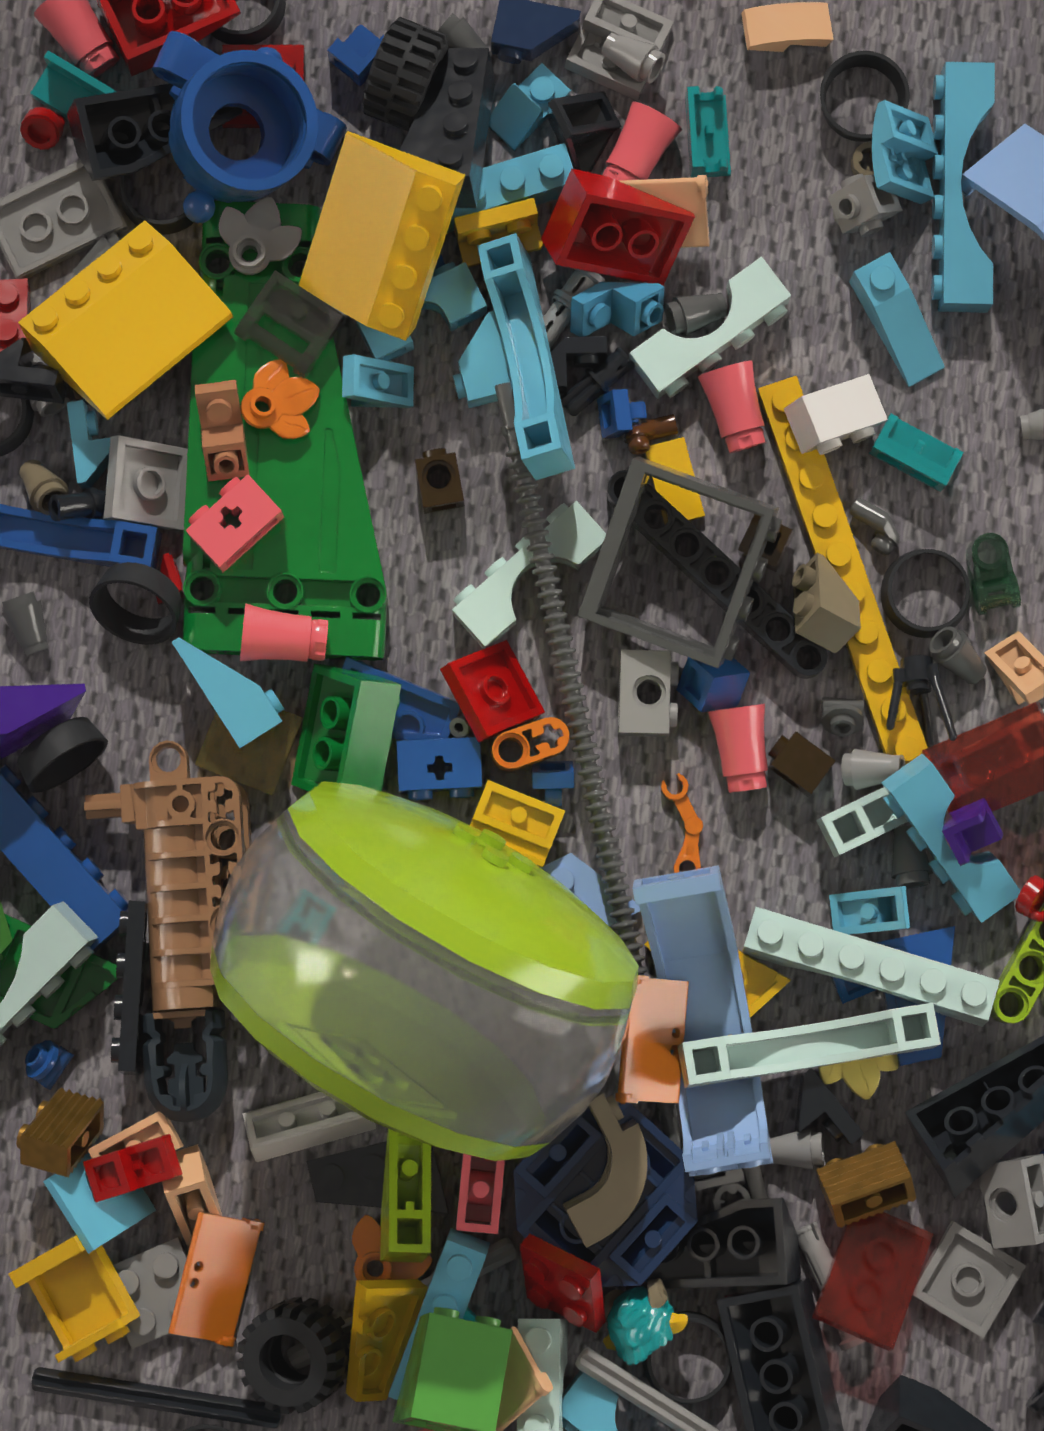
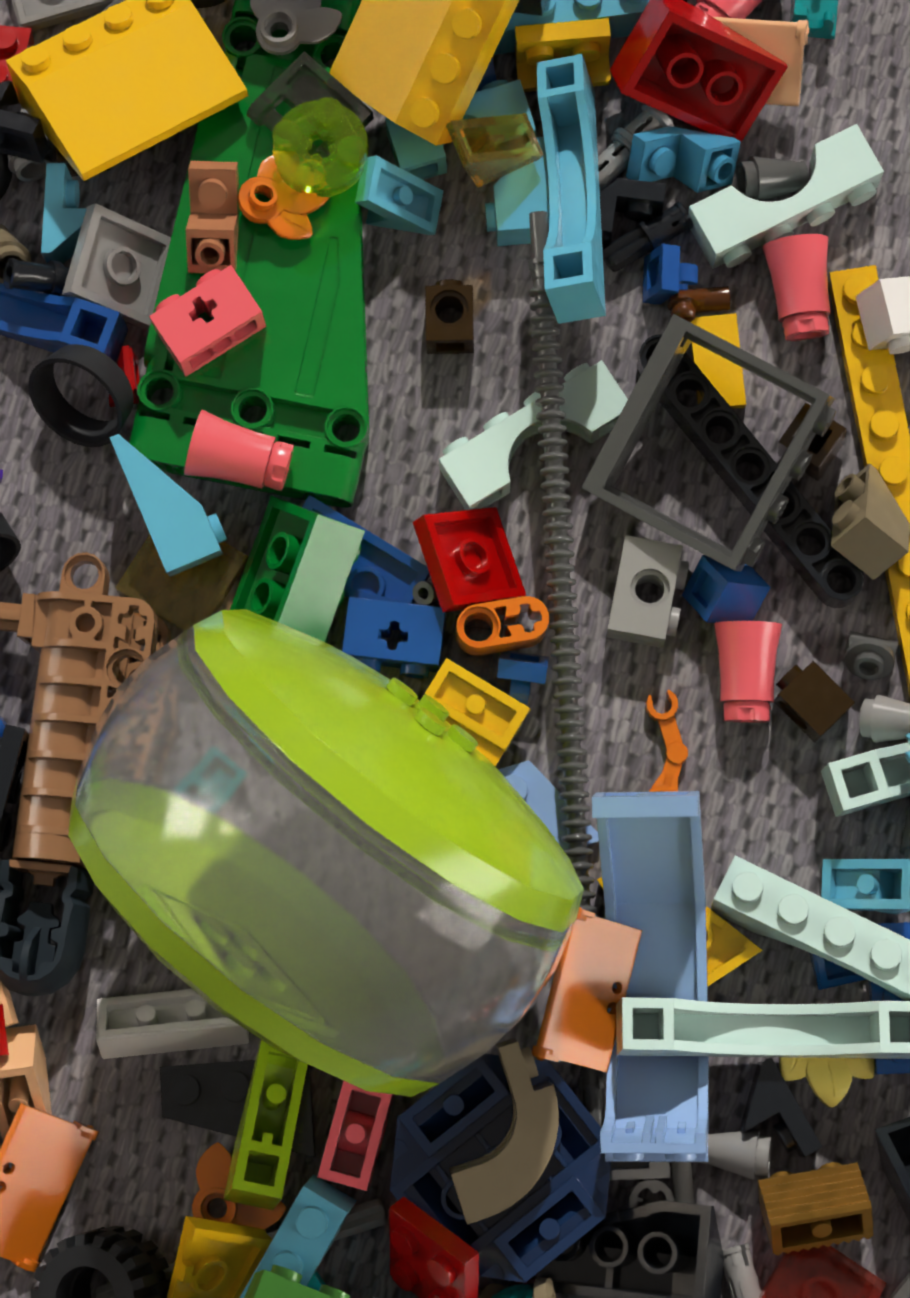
camera: 20 degrees right, 5 degrees down
(305, 332) = (324, 121): none -> clear neon green plate
(454, 328) = (494, 145): none -> clear yellow slope

